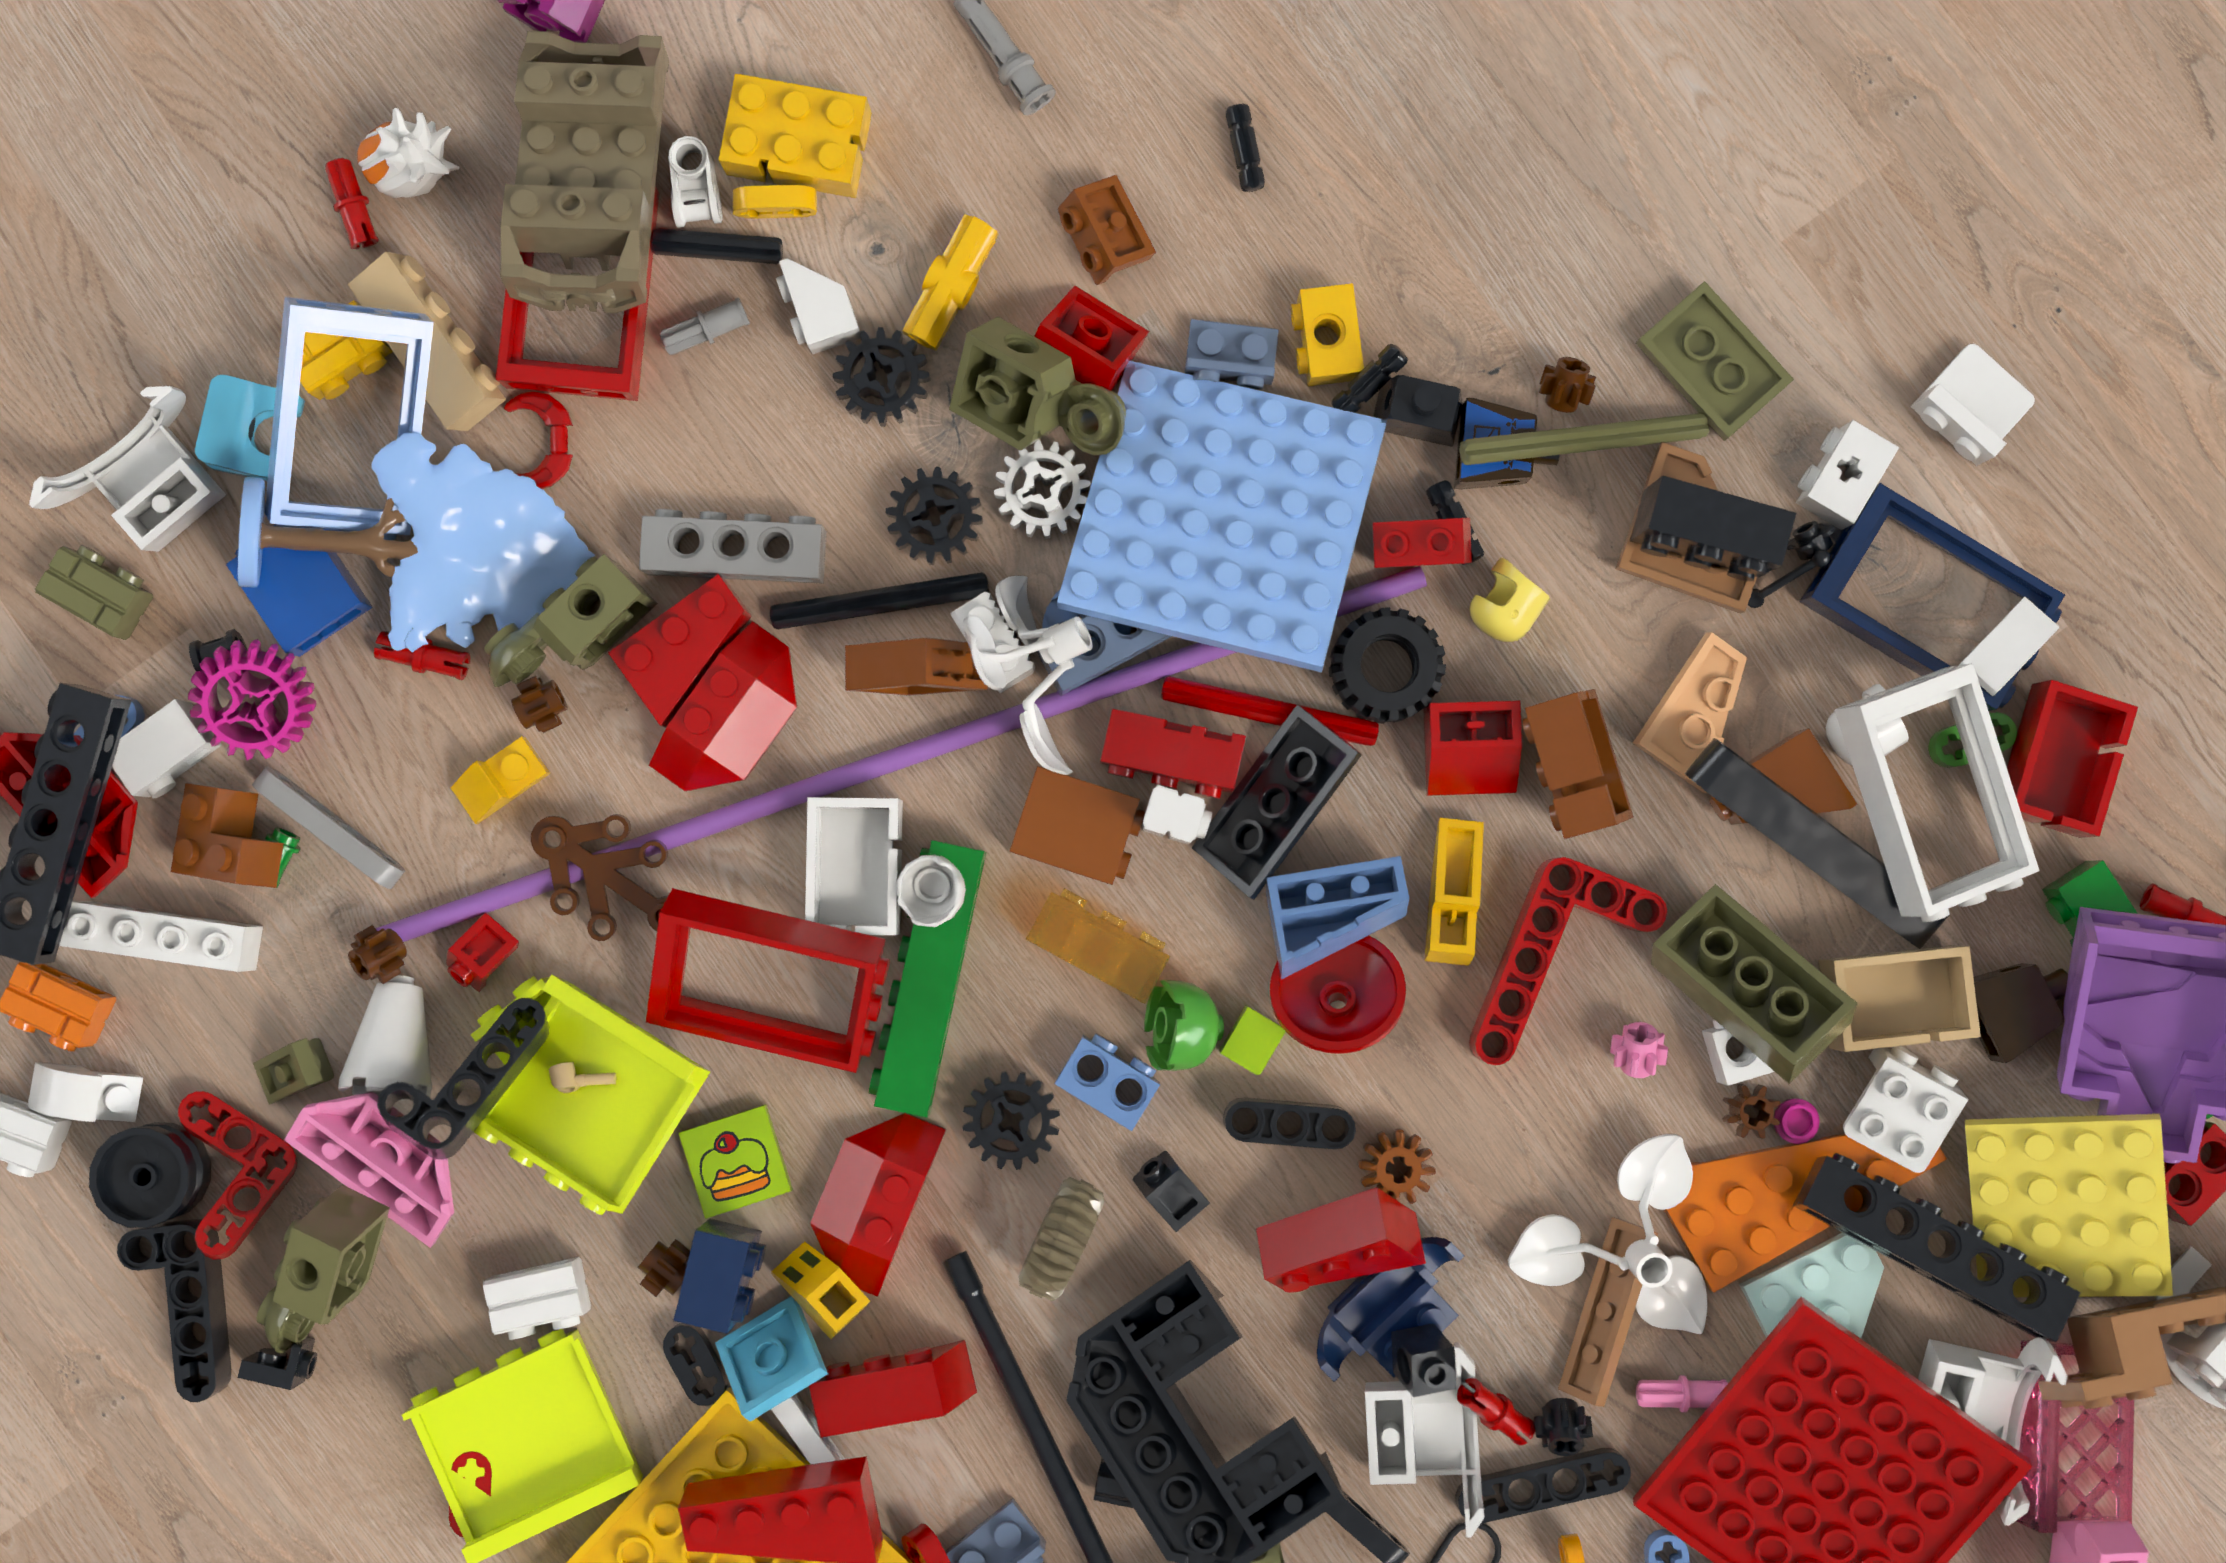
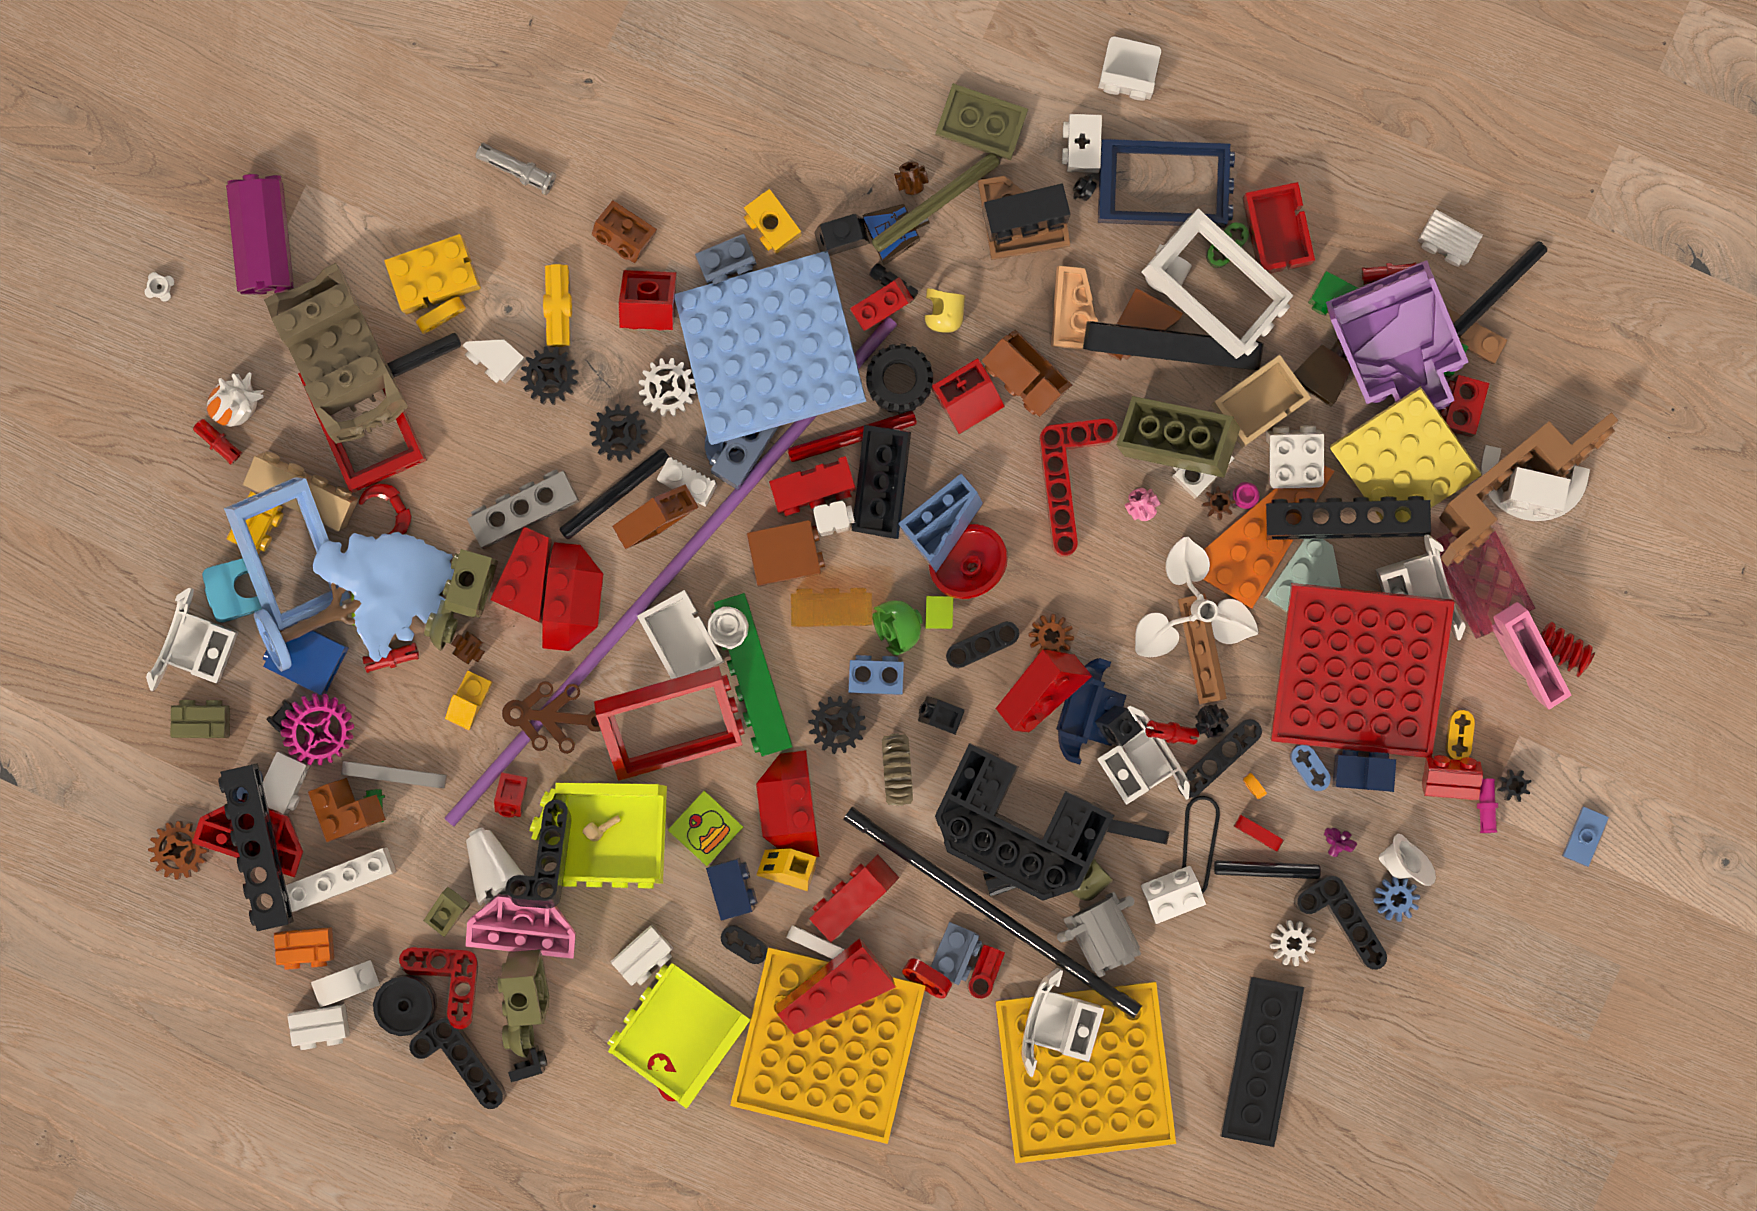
camera: 25 degrees left, 0 degrees up
(377, 954) = (458, 823): reddish brown gear -> none
(664, 1267) = (700, 902): reddish brown gear -> none
(696, 190) = (394, 331): white piece -> none
(704, 327) = (441, 402): light grey axle -> none
(771, 1358) = (782, 917): medium azure plate -> none
(1028, 389) = (629, 340): olive brick -> none
(1055, 644) = (720, 463): white plant -> none
(1245, 147) = (672, 147): black axle -> none
(1370, 379) = (806, 234): black axle -> none
(1454, 892) = (1001, 476): yellow slope -> none
(1678, 1393) = (1261, 671): bright pink axle -> none
(1820, 559) = (1073, 233): black hinge -> none
(2010, 645) = (1214, 187): white slope -> none

